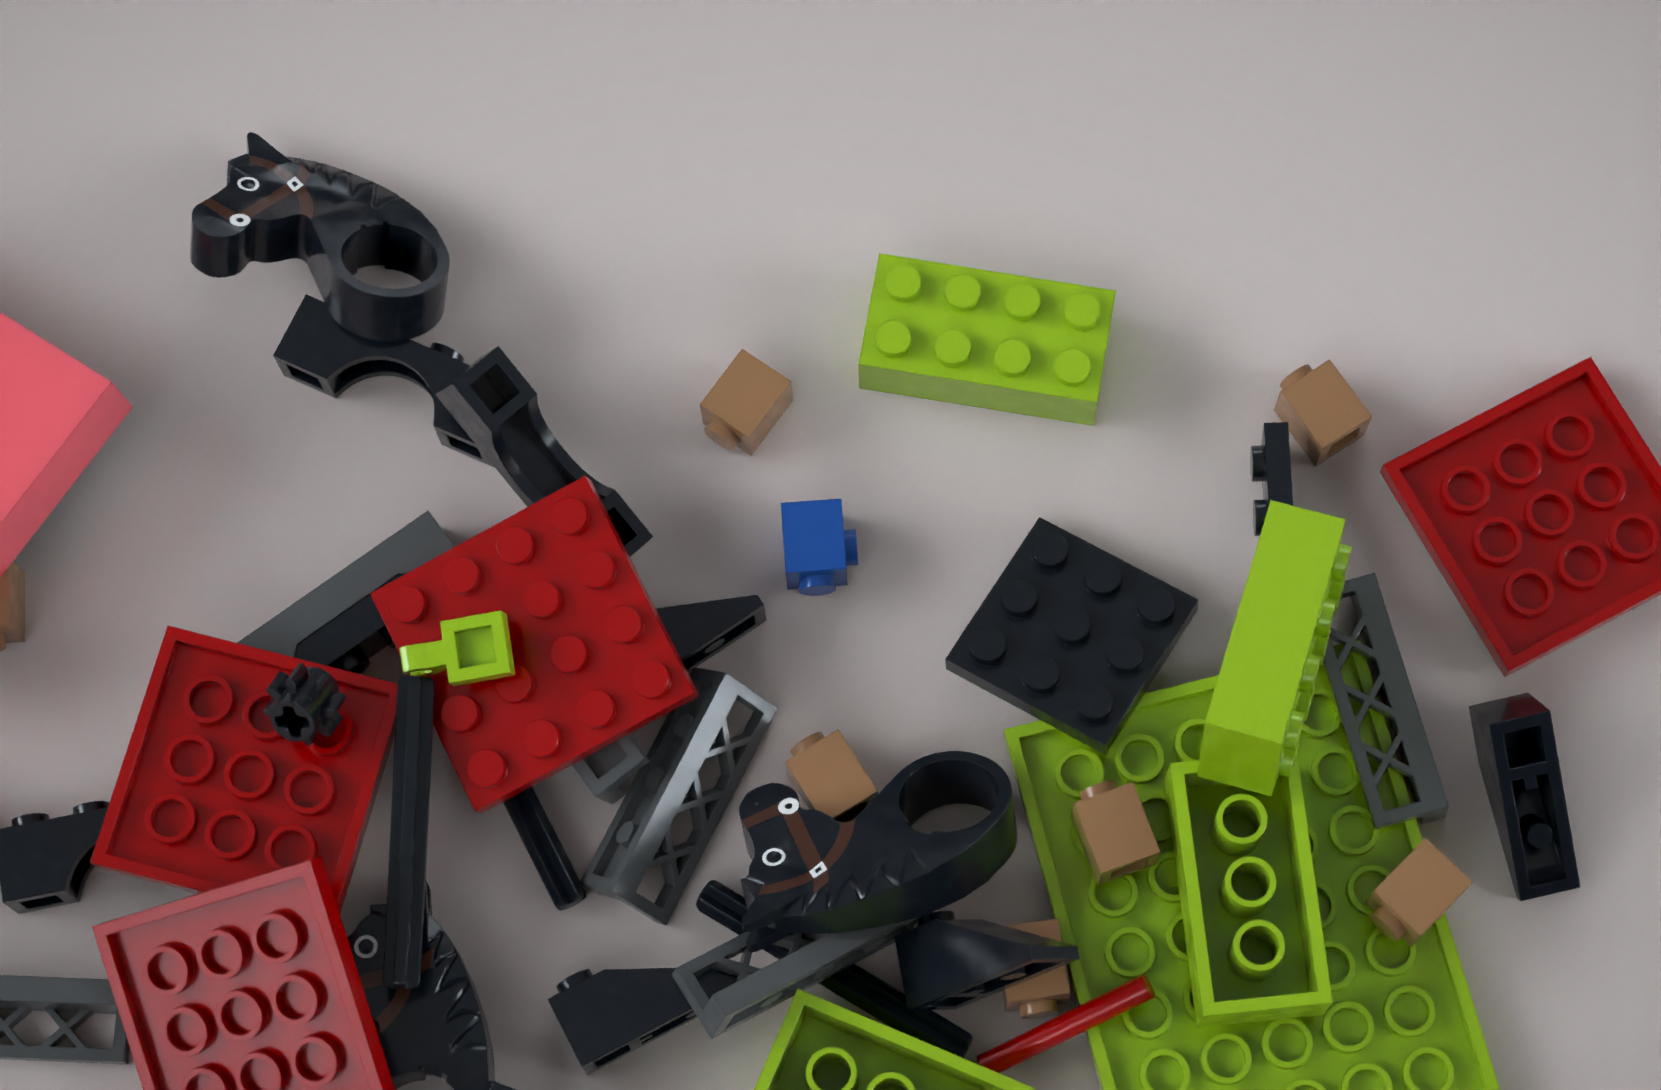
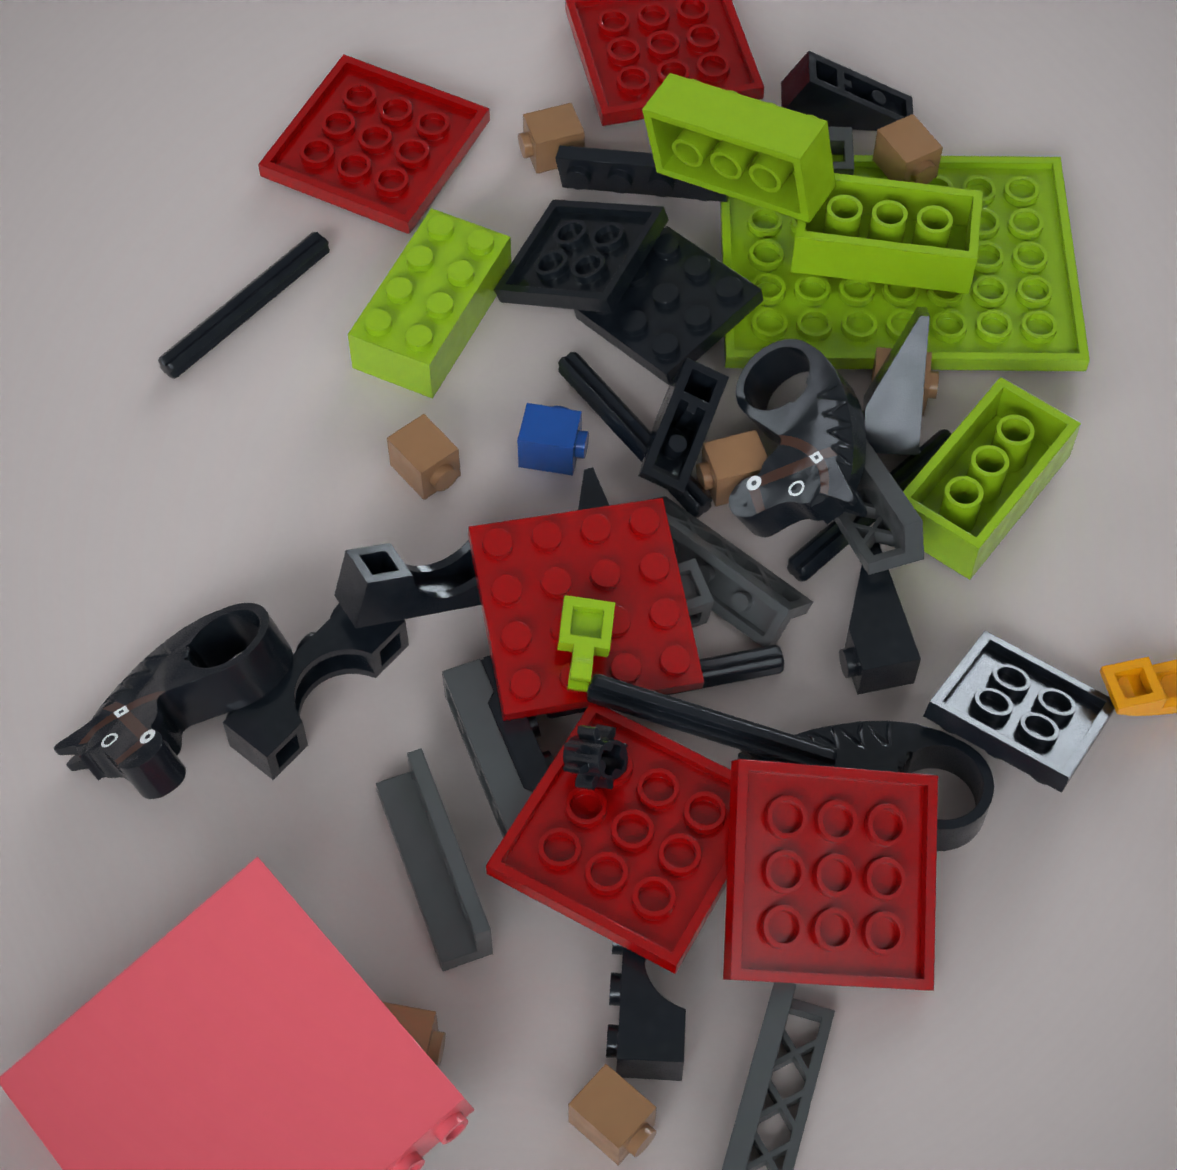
camera: 80 degrees left, 15 degrees down
(207, 578) = (435, 865): none -> dark grey fence
(852, 697) = (682, 425): none -> black slope
(862, 644) = (624, 423): none -> black axle
(933, 121) = (243, 305): none -> black axle
(1068, 1025) = (949, 362): red bar -> none
(1110, 503) = (582, 255): none -> black plate
(1114, 831) = (824, 299): medium nougat brick -> none
(1246, 190) = (375, 143): none -> red plate

